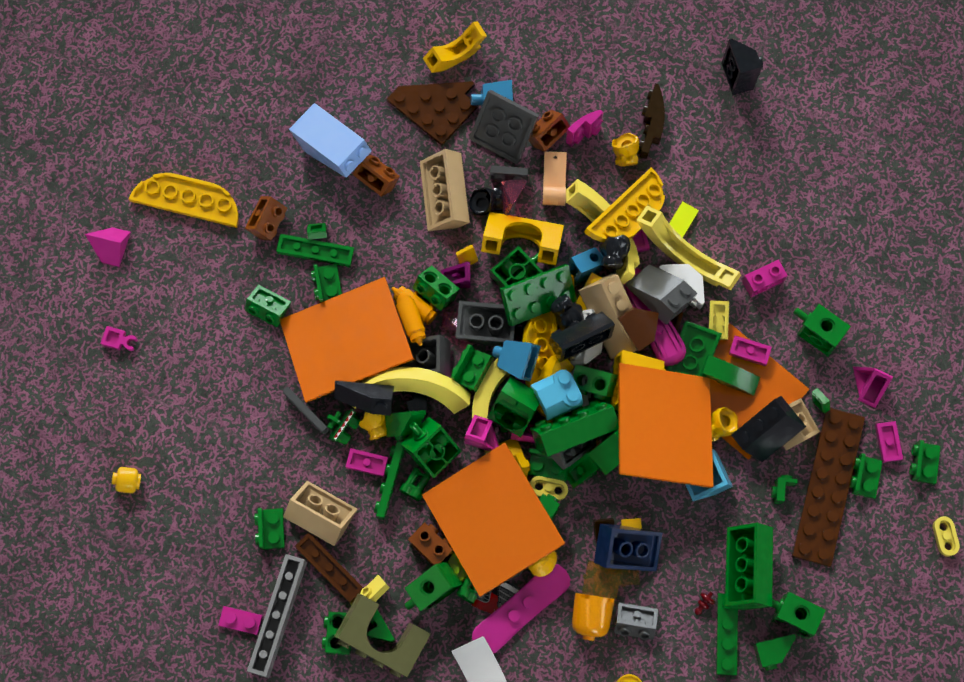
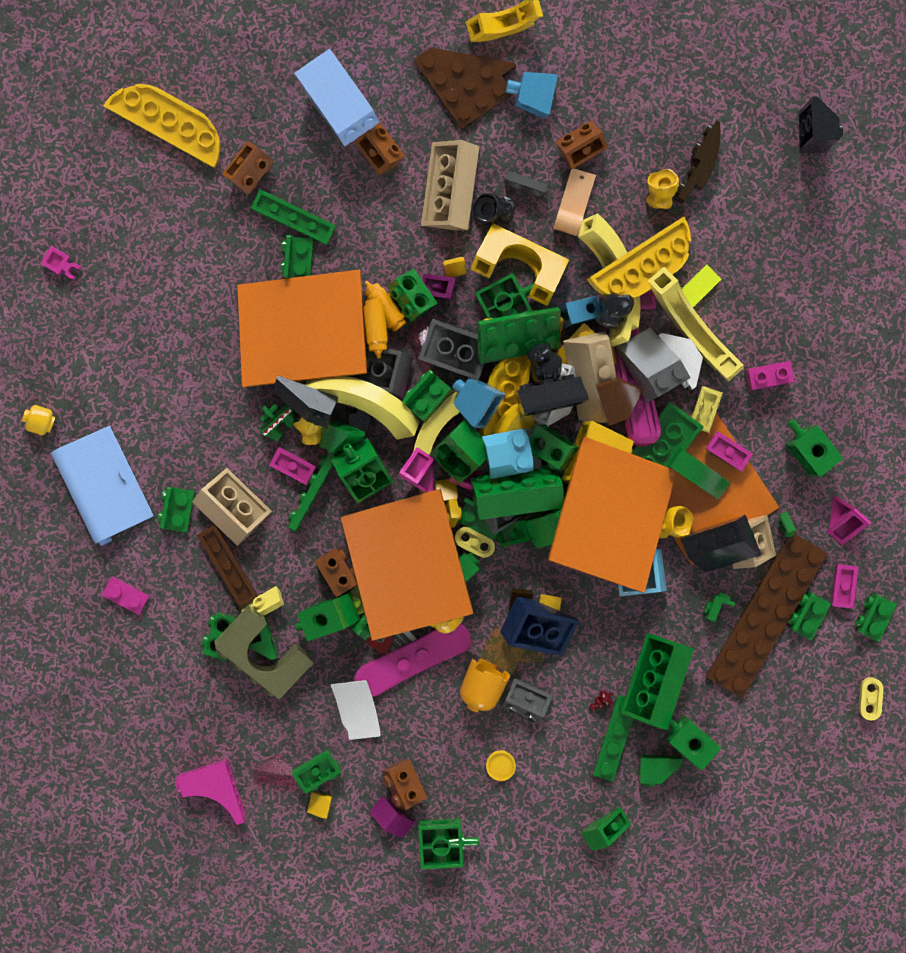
camera: 10 degrees right, 15 degrees up
(109, 244) = (72, 152): dark pink slope -> none
(197, 533) = (93, 479): none -> light blue door
(267, 305) = (227, 266): green bracket -> none
(277, 616) = (162, 603): light grey brick -> none
(305, 410) = (241, 393): dark grey tile -> none
(316, 231) = (300, 196): green tile -> none
(411, 490) = (334, 508): green piece -> none
(503, 126) = (533, 129): dark grey plate -> none
(510, 192) = (521, 207): clear pink slope -> none
(586, 125) = (627, 151): dark pink slope -> none

